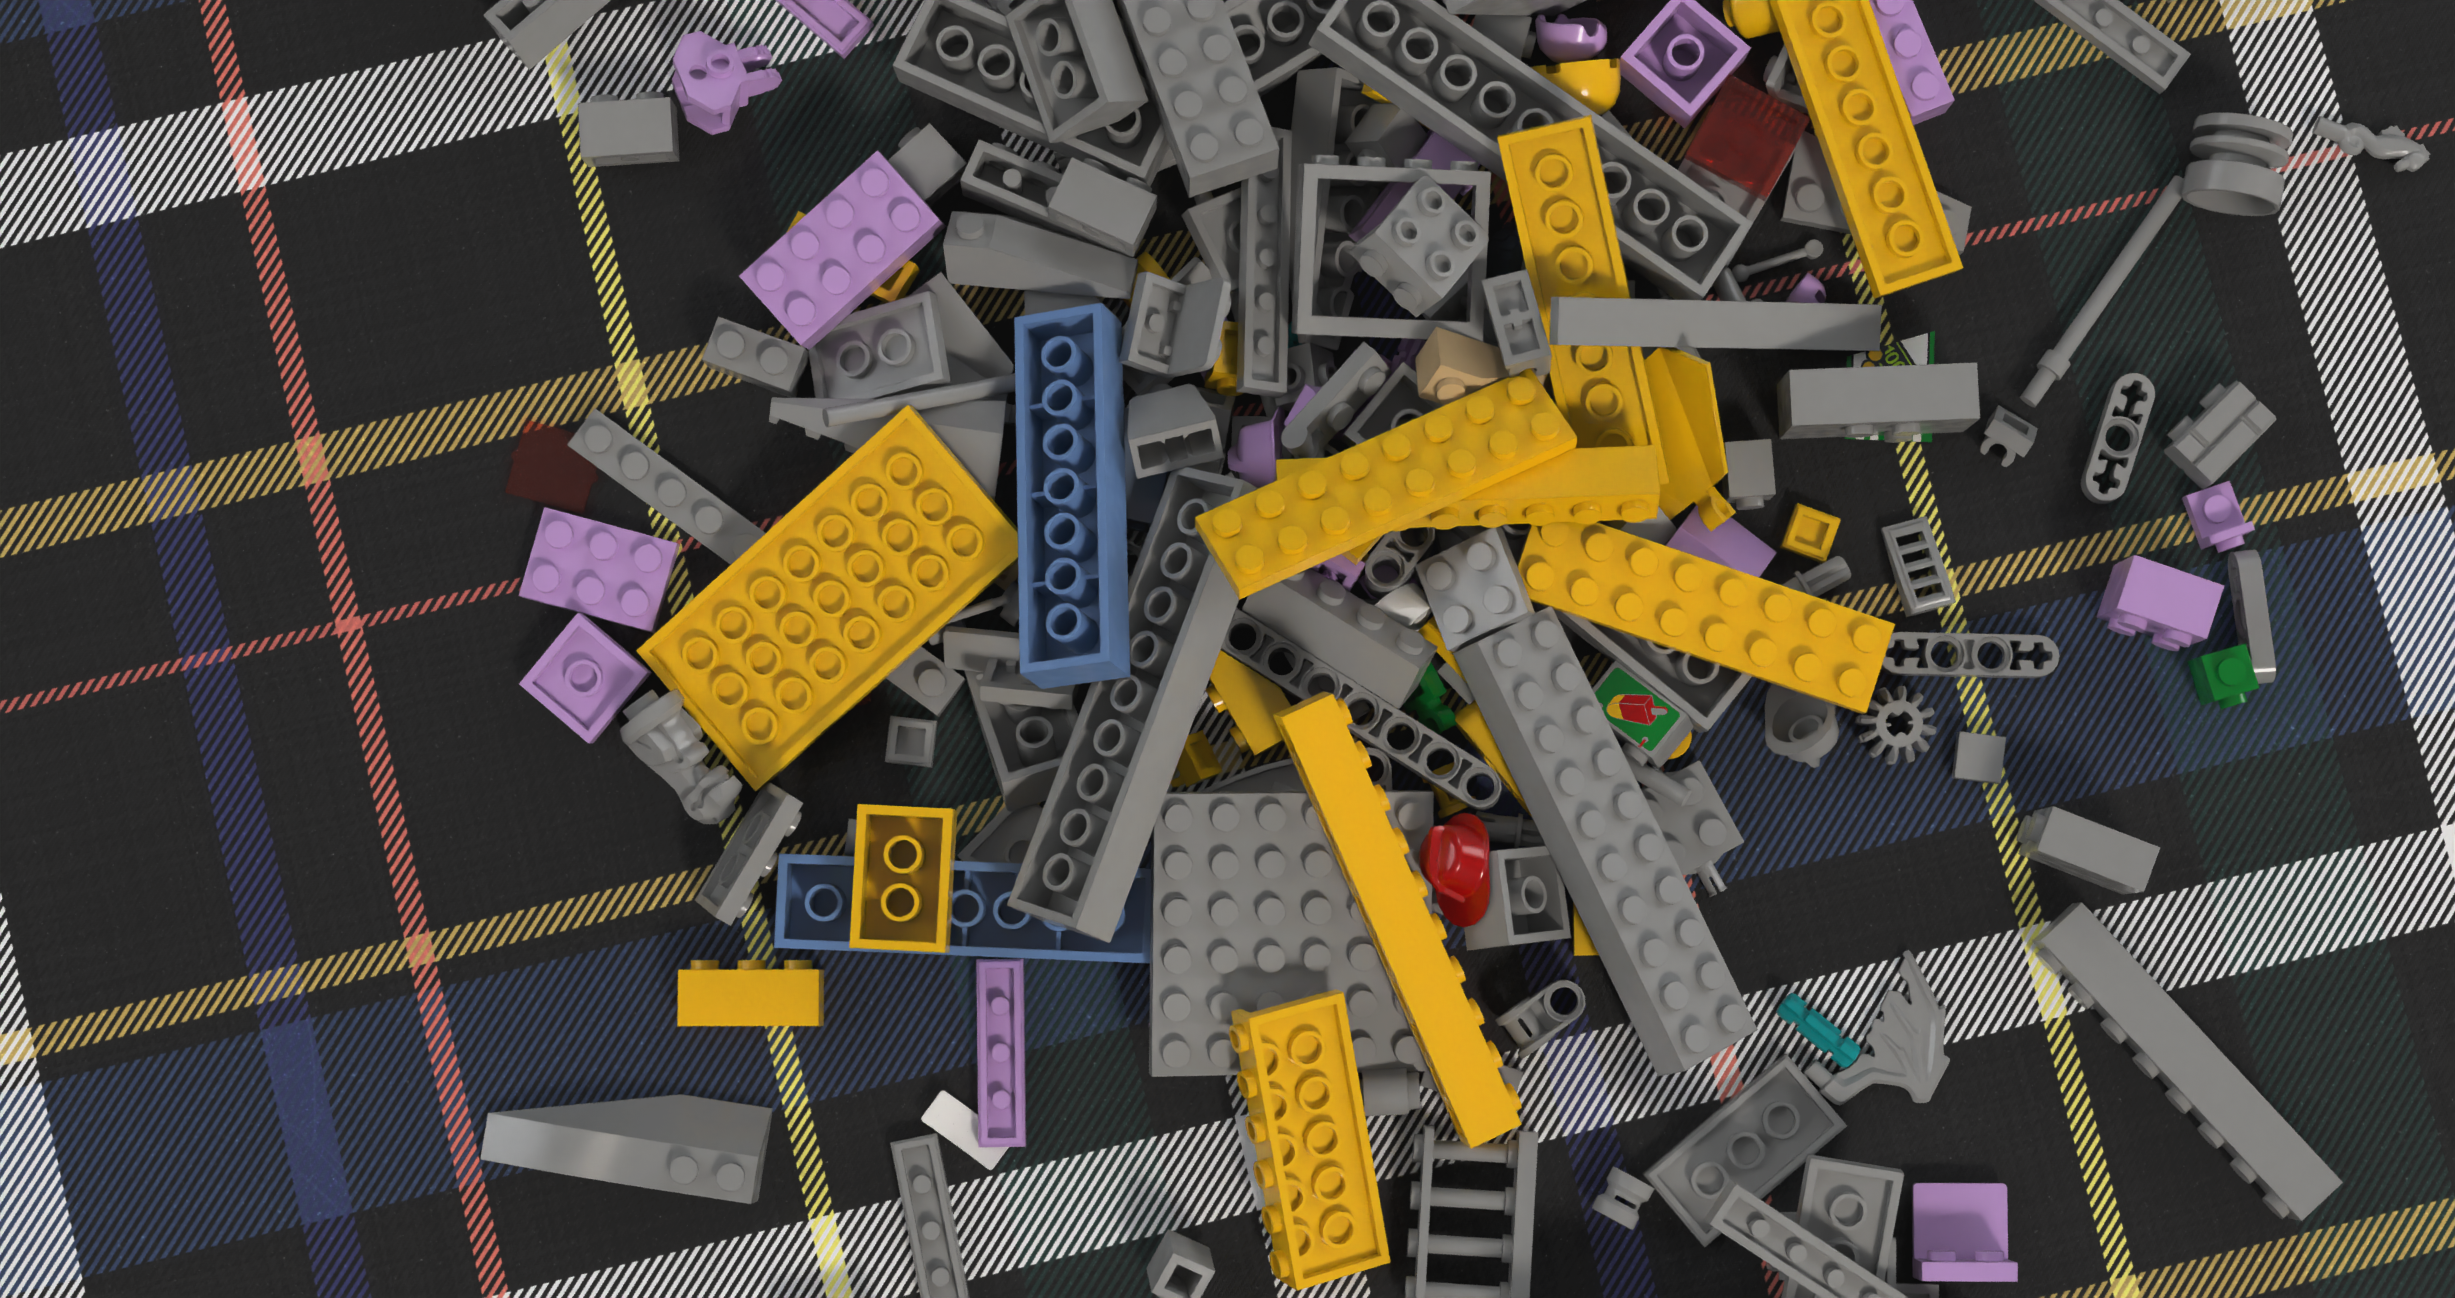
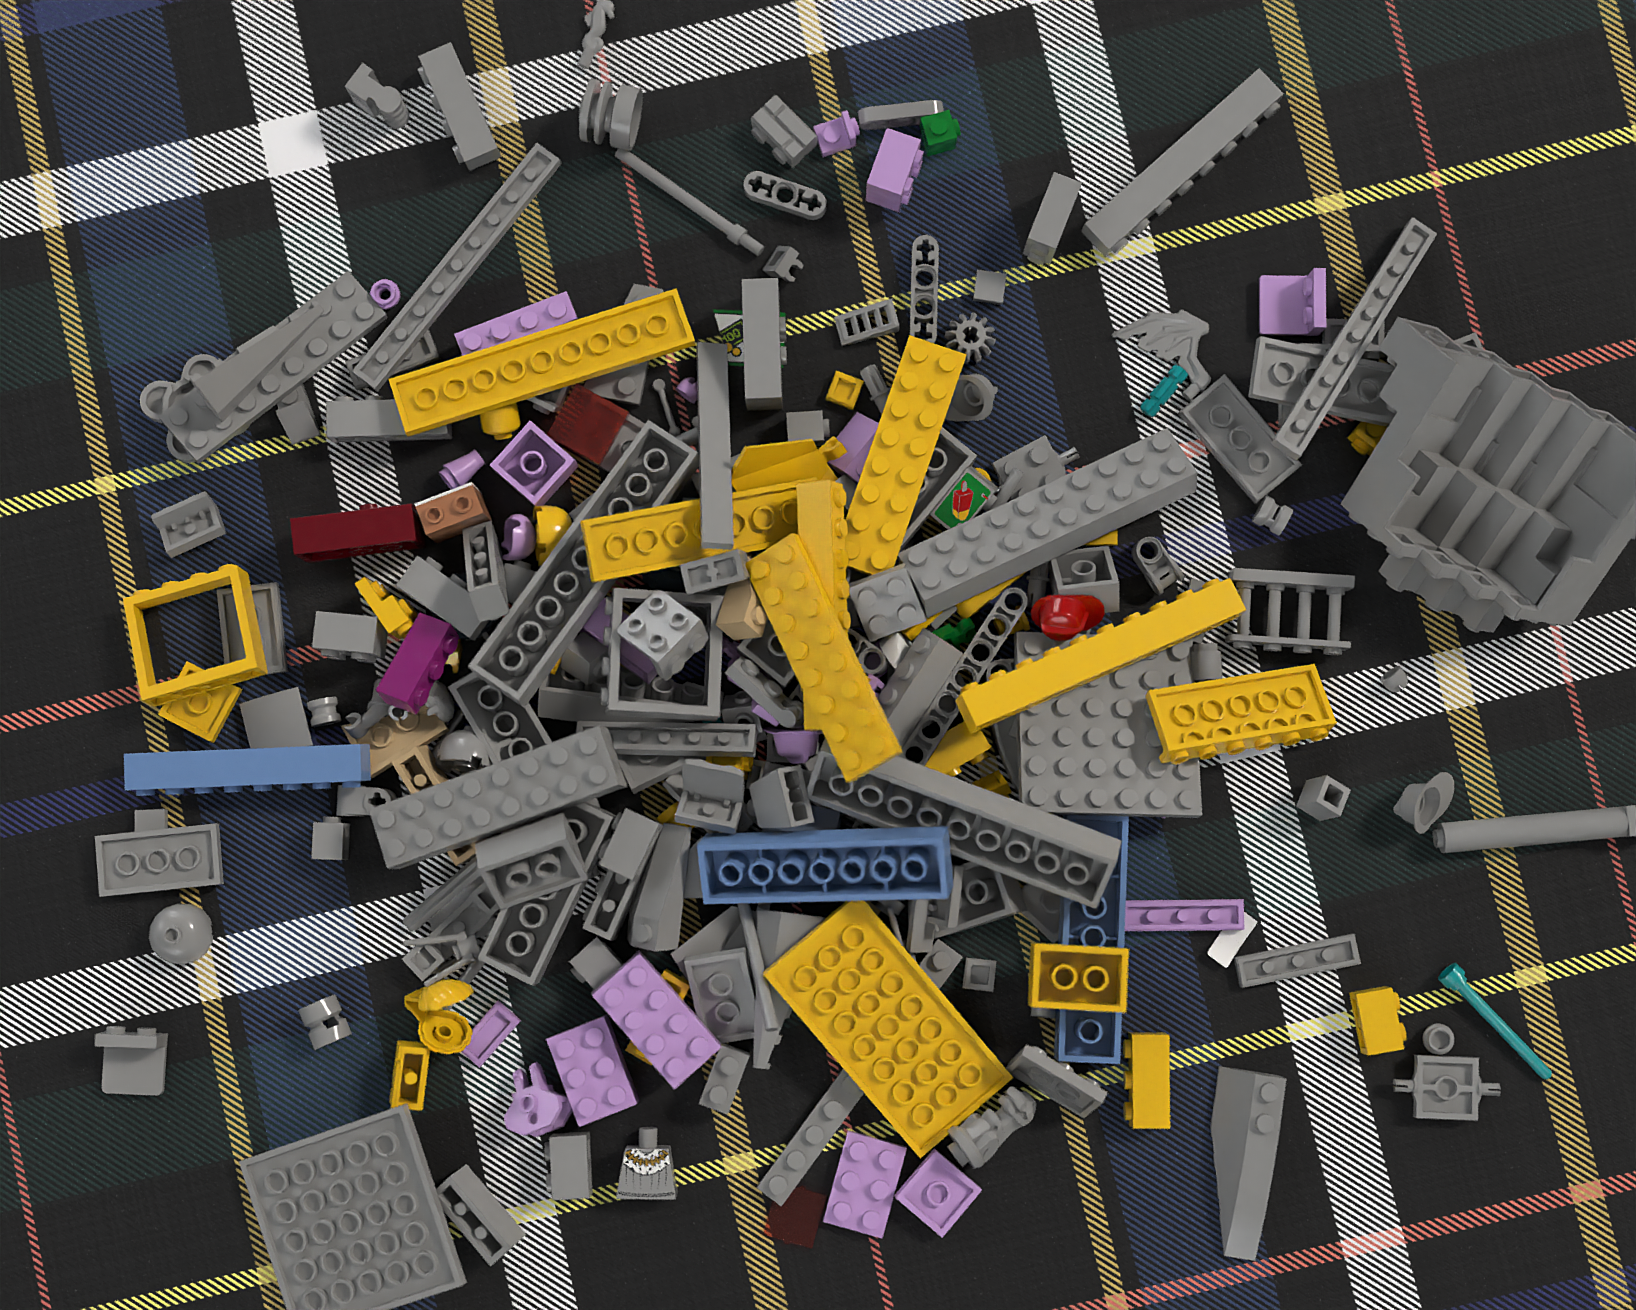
camera: 90 degrees left, 0 degrees up
(622, 246) = (647, 1169): none -> light grey torso
(768, 162) = (593, 1070): none -> lavender brick

